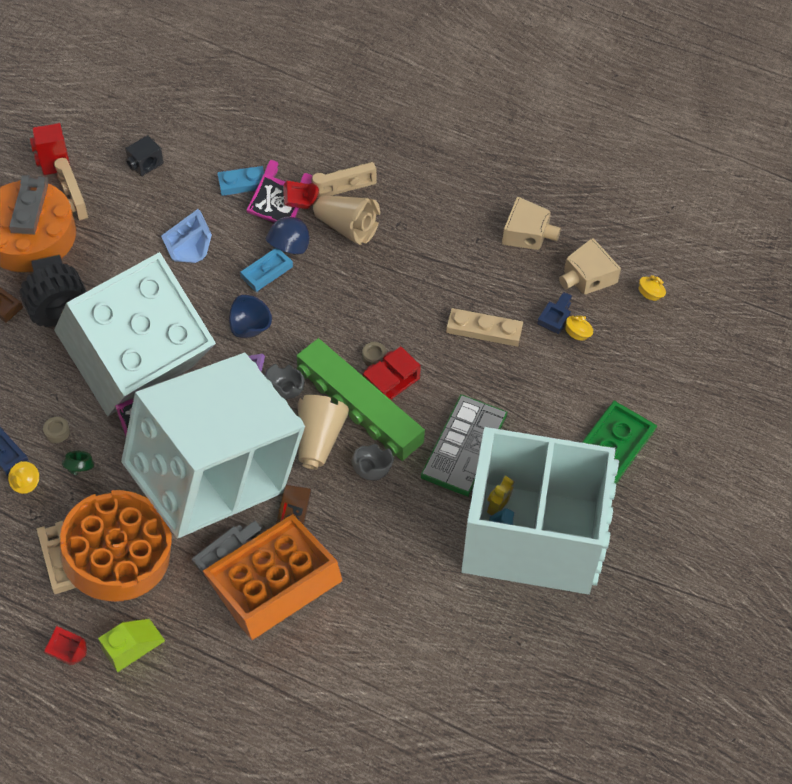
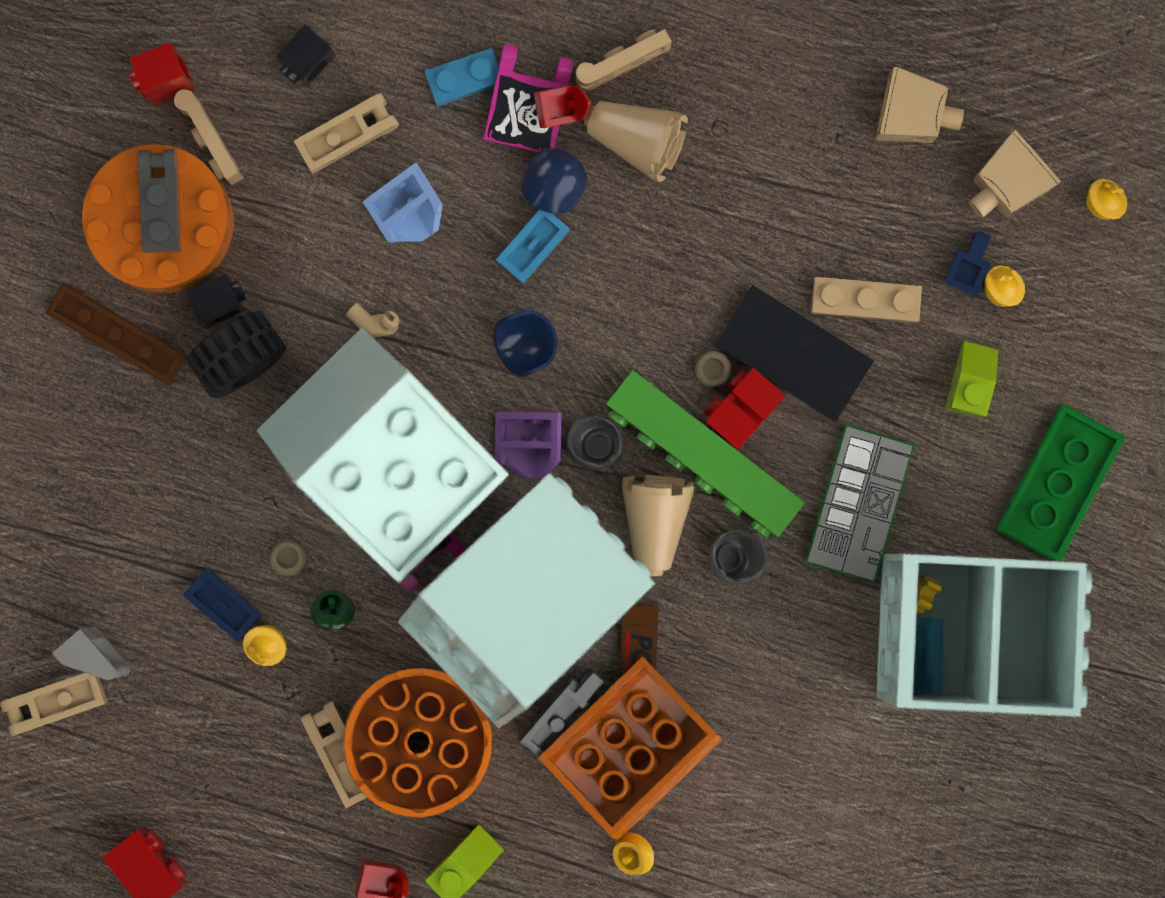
camera: 10 degrees left, 30 degrees up
(159, 198) = (345, 133): none -> tan plate
(261, 651) = (633, 854): none -> yellow hat
(439, 354) = (794, 353): none -> black tile
(550, 381) = (973, 381): none -> lime slope

